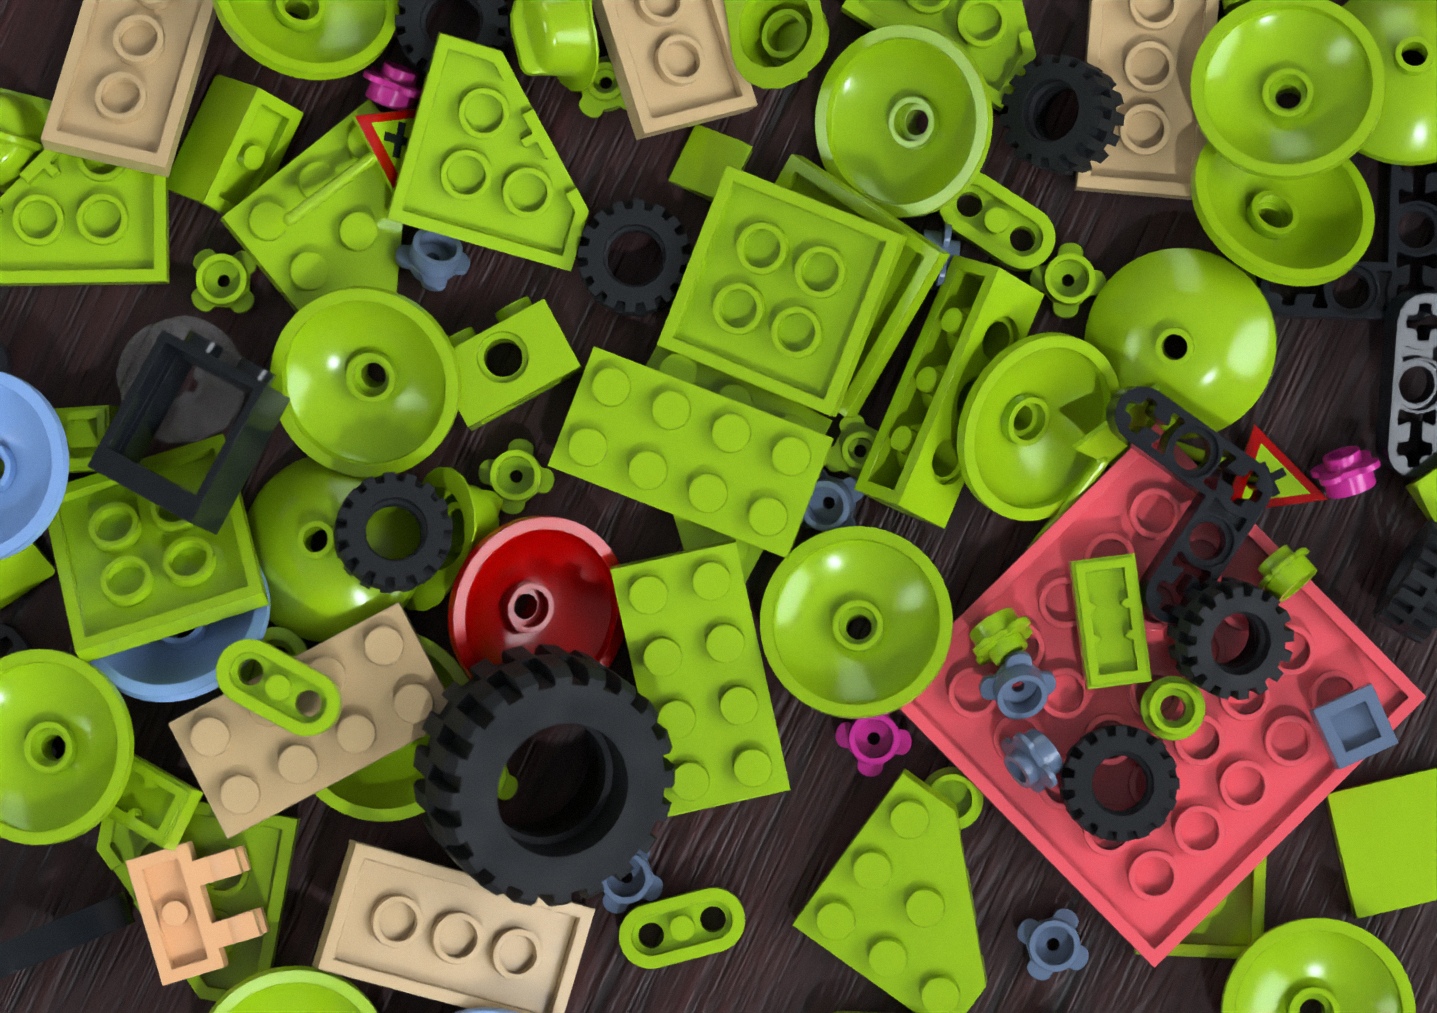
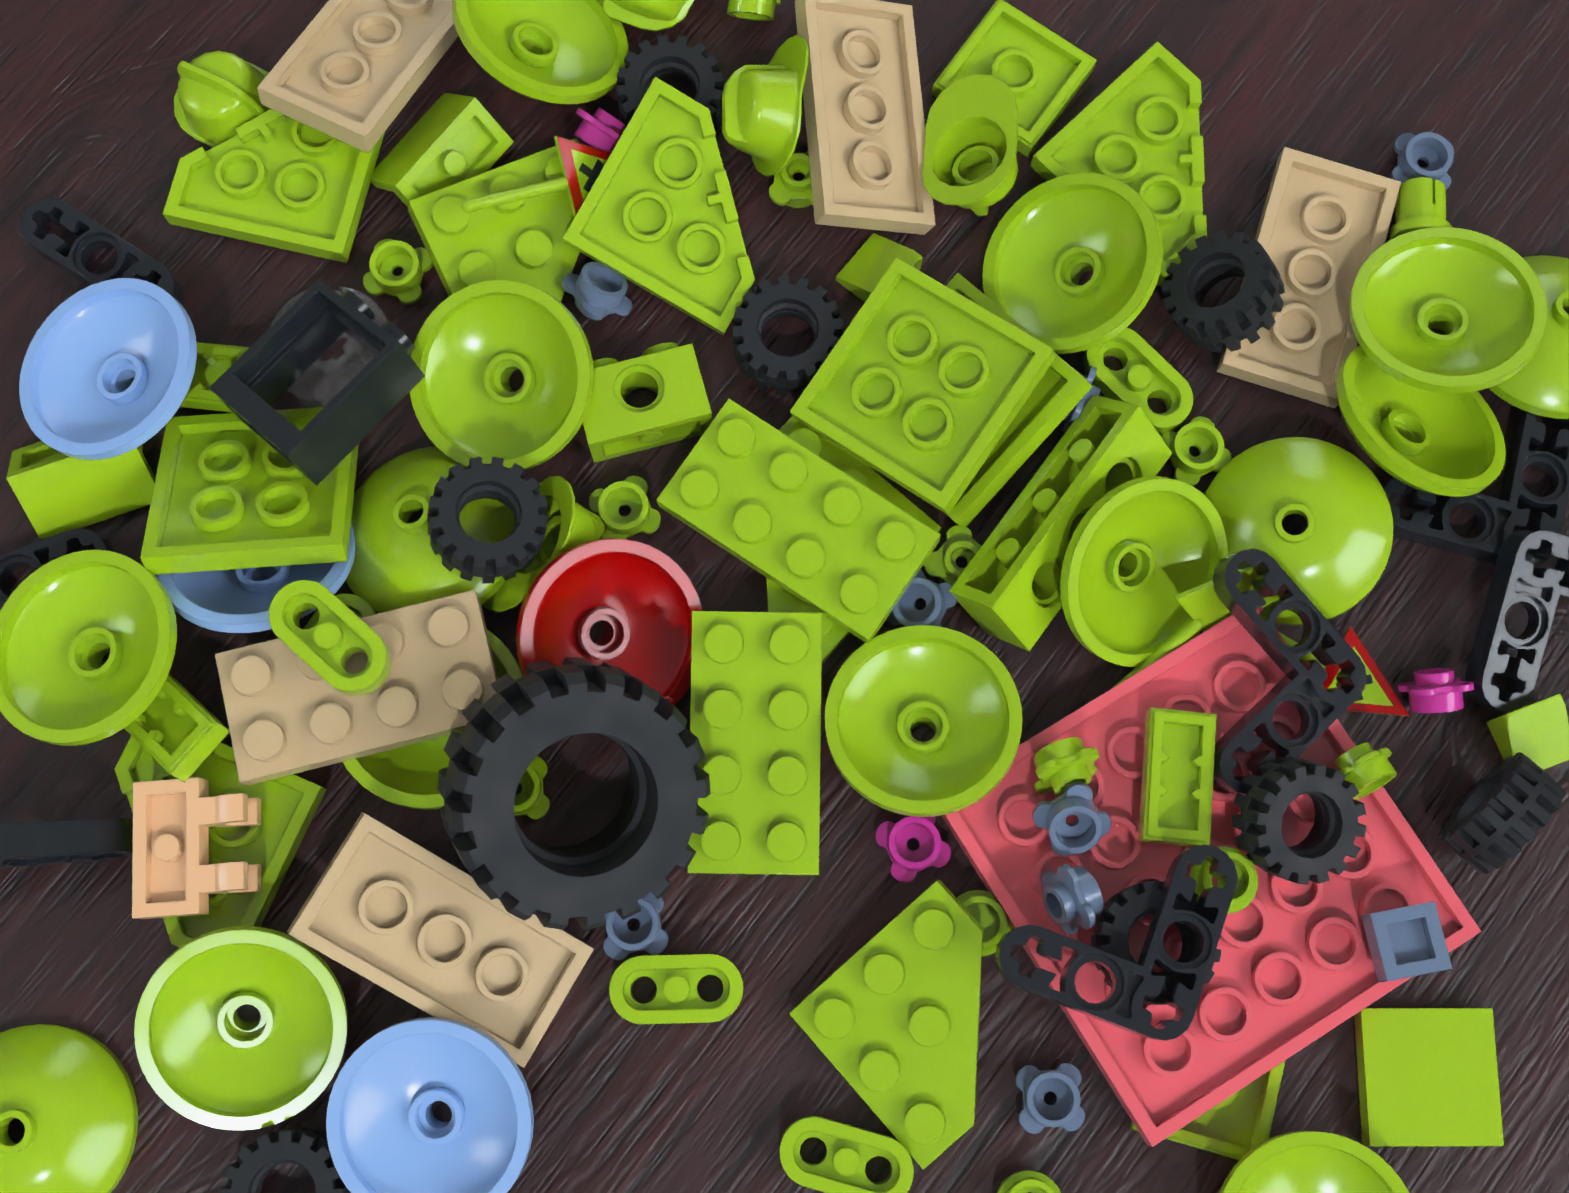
camera: 15 degrees right, 10 degrees down
(1098, 827) = (1130, 980): none -> black beam

